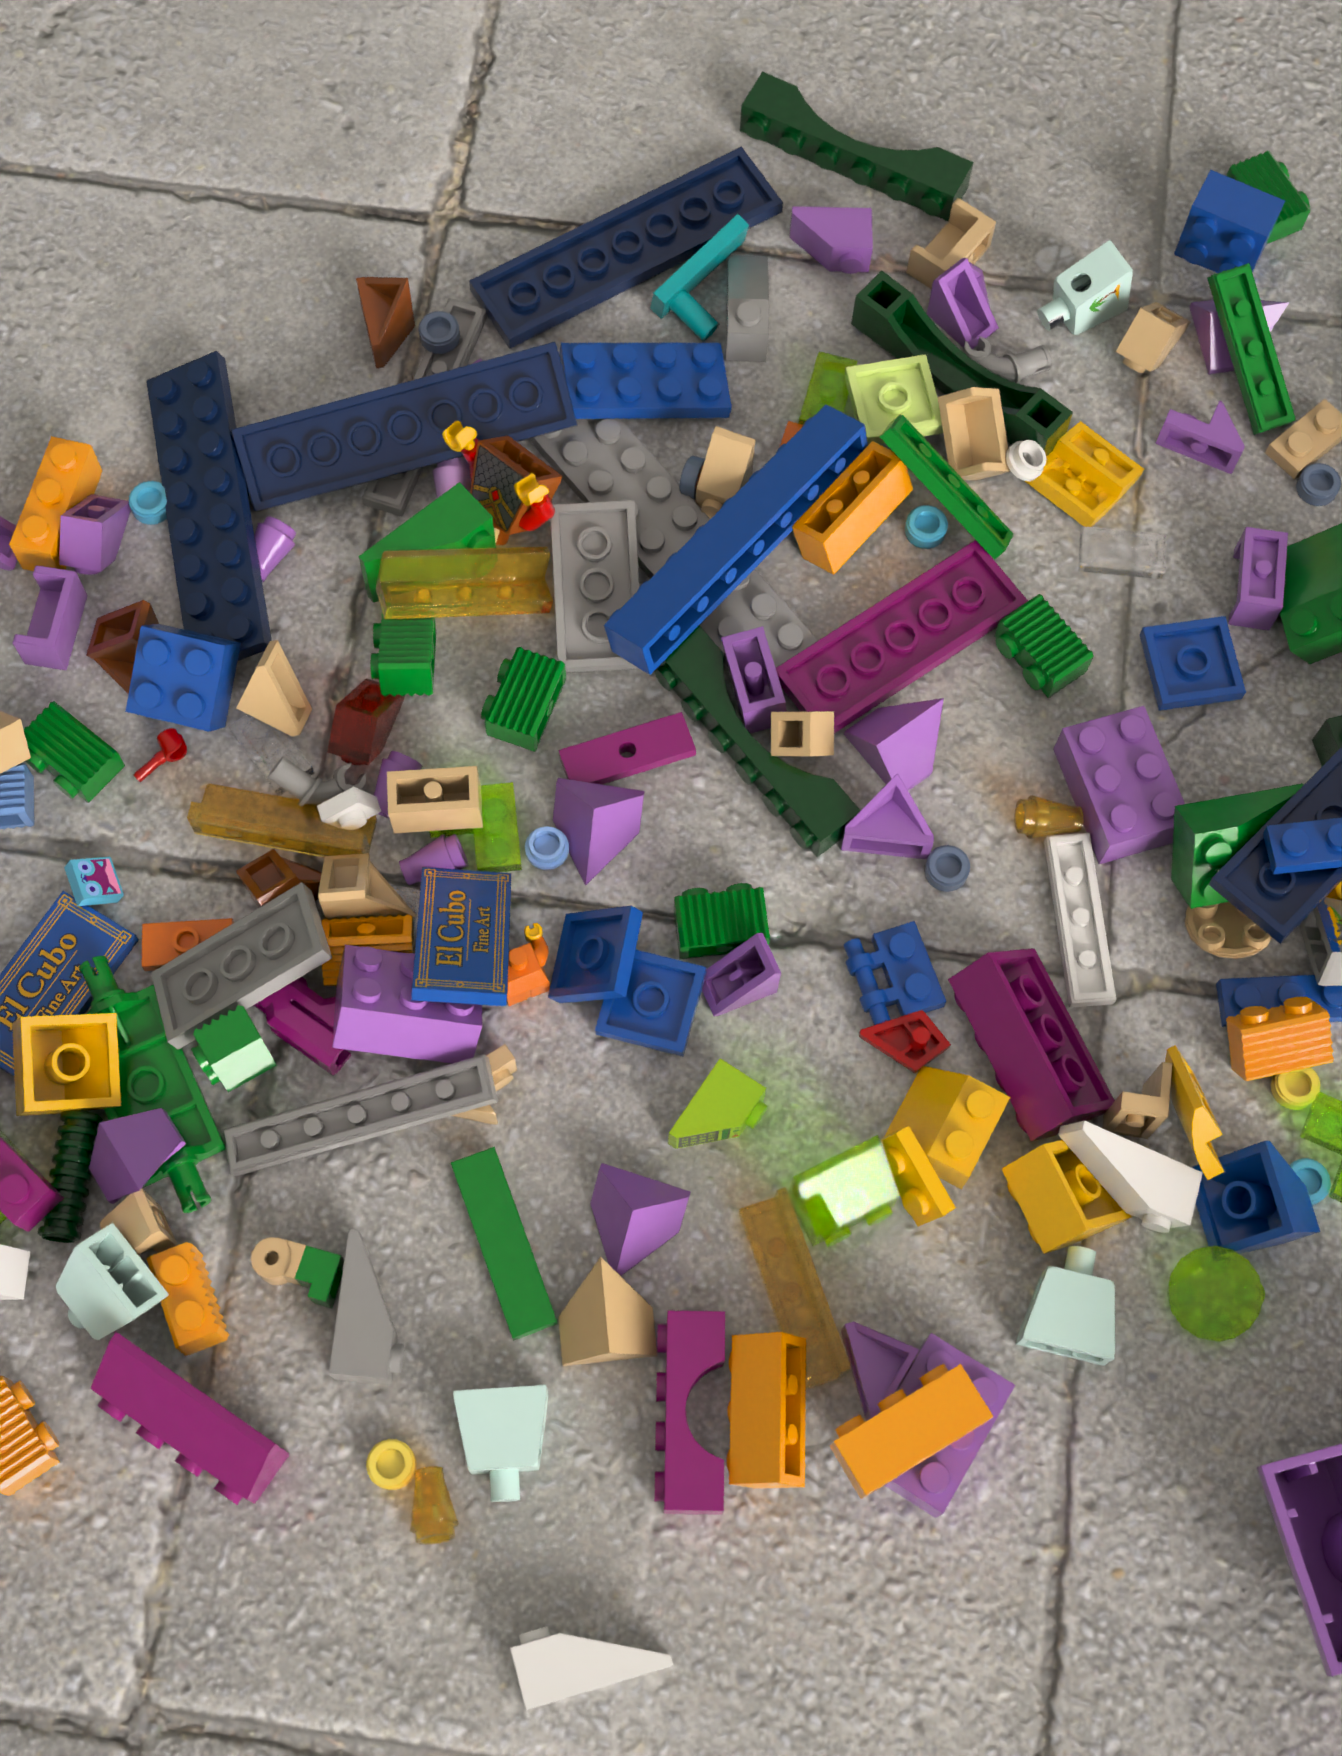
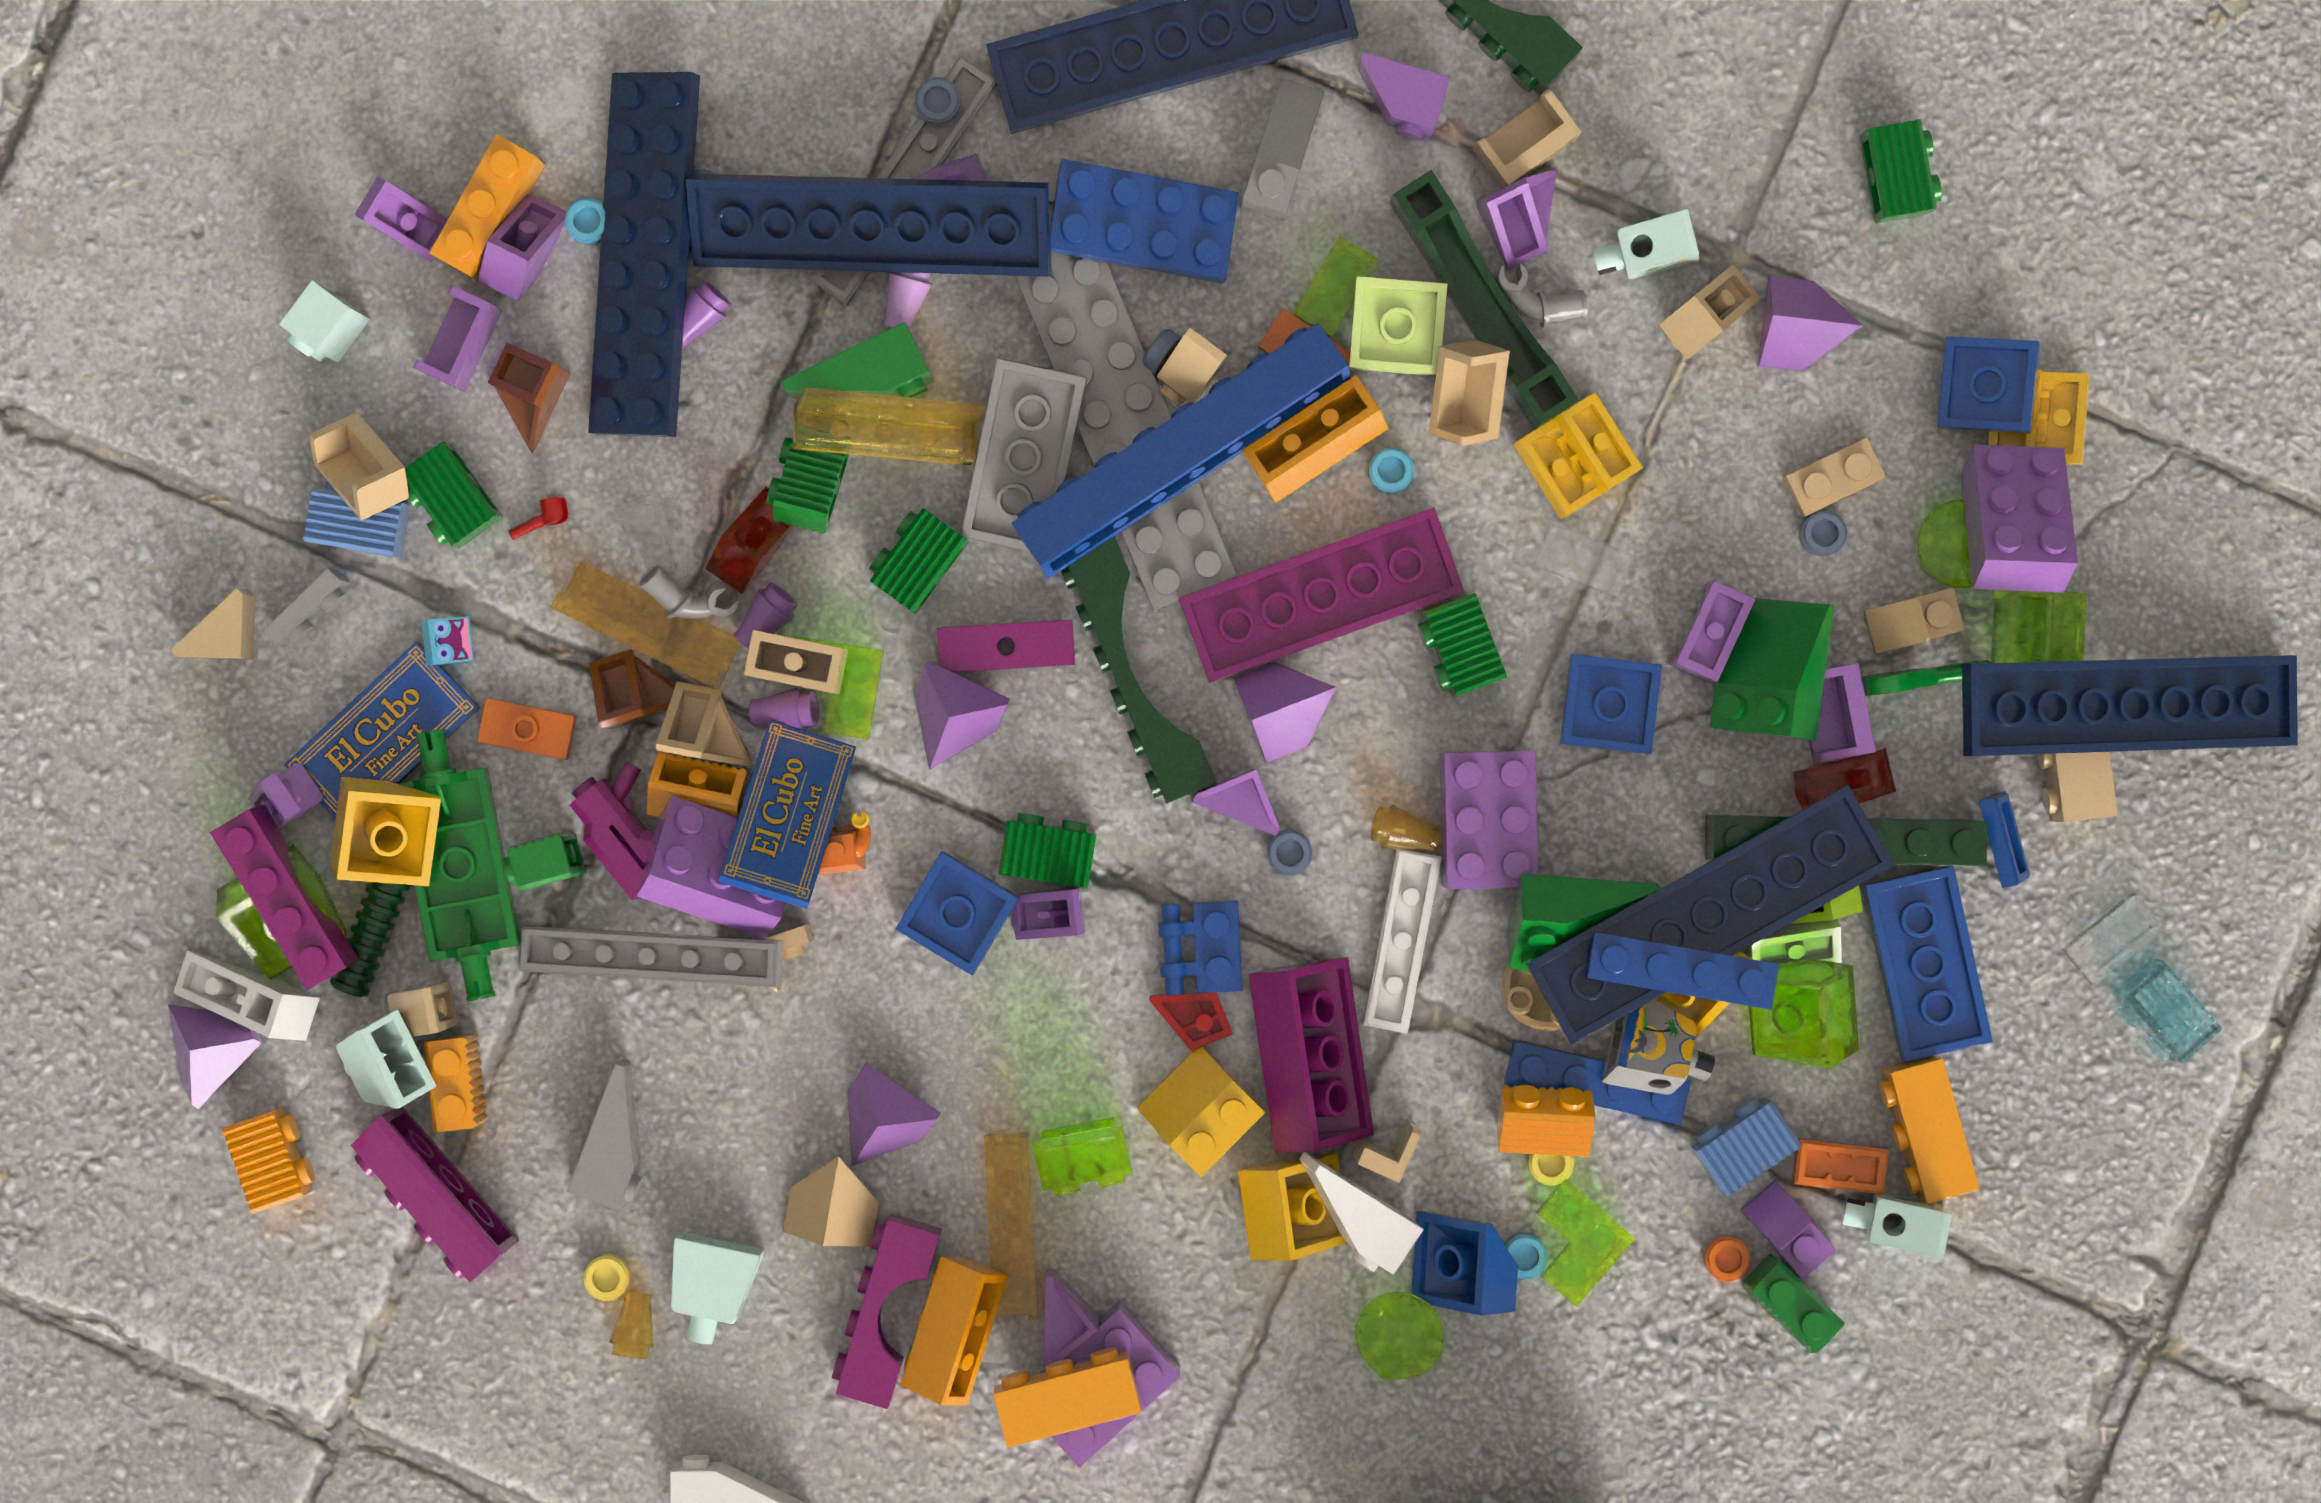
camera: 25 degrees right, 20 degrees up
(132, 1150) = (432, 941): medium lavender slope -> none
(183, 677) = (577, 451): blue brick -> none
(241, 964) = (569, 782): light grey plate -> none
(276, 693) = (666, 491): tan slope -> none
(286, 1261) = (565, 1078): leg -> none
(349, 809) = (712, 642): white plate -> none
(386, 313) = (883, 67): dark orange slope -> none
(504, 1243) = (758, 1105): green tile -> none
(506, 480) = (957, 322): torso -> none
(546, 848) = (900, 724): light blue plate -> none
(595, 955) = (914, 857): blue plate -> none
(675, 290) = (1205, 120): teal piece -> none
(720, 1108) = (993, 1037): lime slope -> none
(753, 678) = (1153, 609): medium lavender slope -> none
(802, 733) = (1182, 686): tan brick -> none
(916, 1178) = (1149, 1143): yellow plate -> none
(947, 486) = (1418, 447): green tile -> none
(1026, 459) = (1525, 432): white plate -> none
(1072, 1311) = (1259, 1316): light aqua torso -> none
(1194, 1113) = (1430, 1179): yellow slope -> none
(1210, 443) = (1726, 460): medium lavender slope -> none
(1228, 224) = (1835, 210): blue brick -> none
(1251, 348) = (1803, 366): green tile -> none

